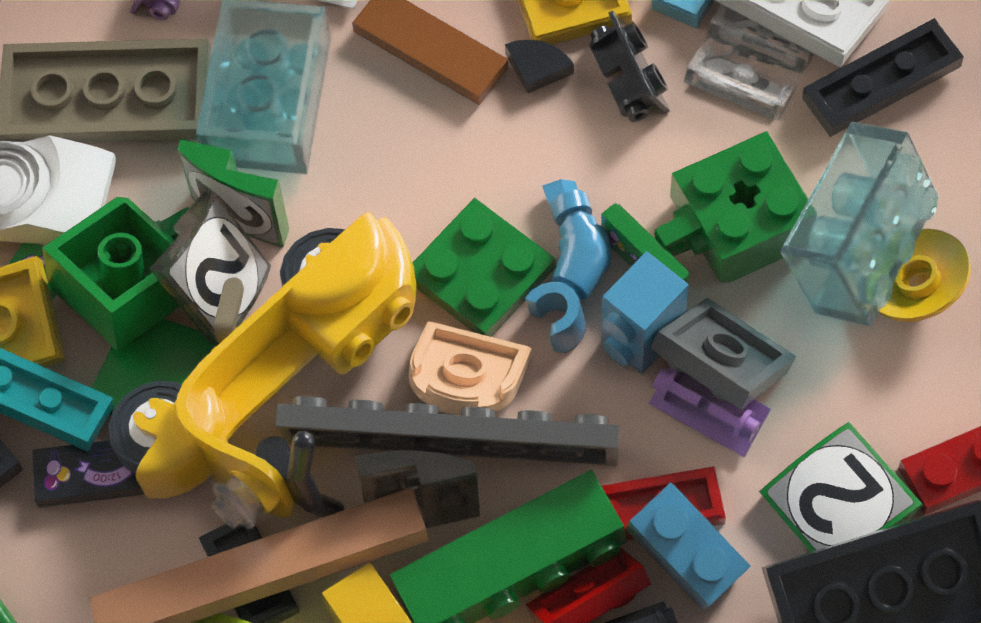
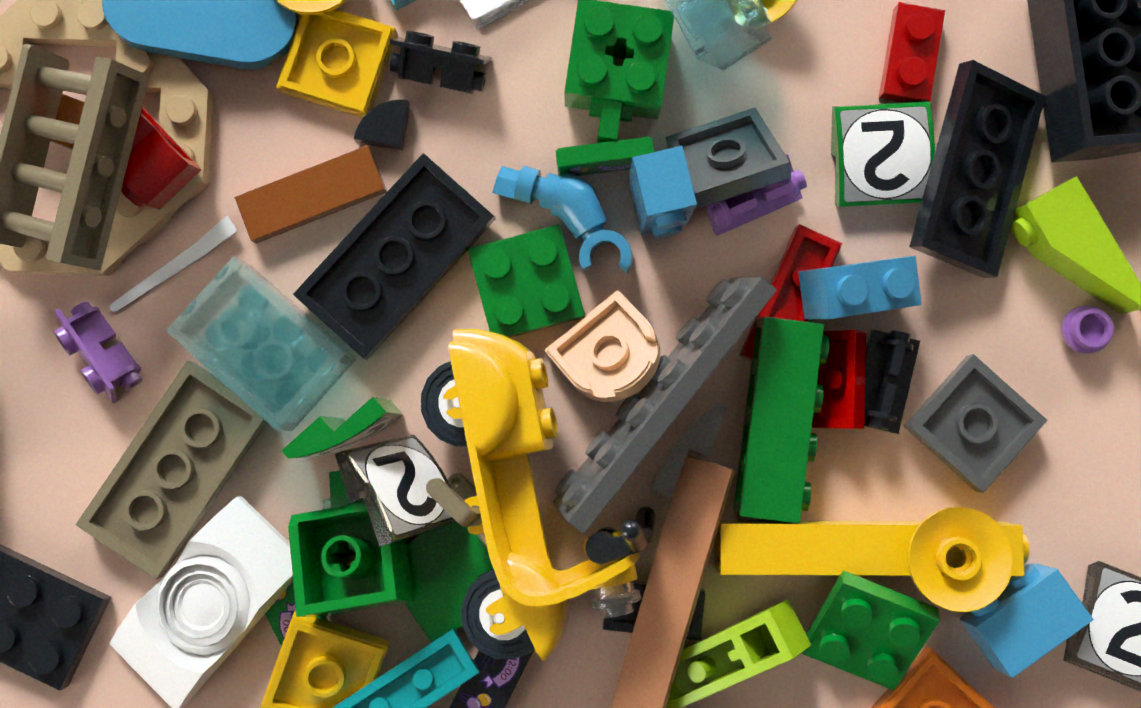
camera: 55 degrees left, 20 degrees up
(423, 143) = (394, 256): none -> black plate

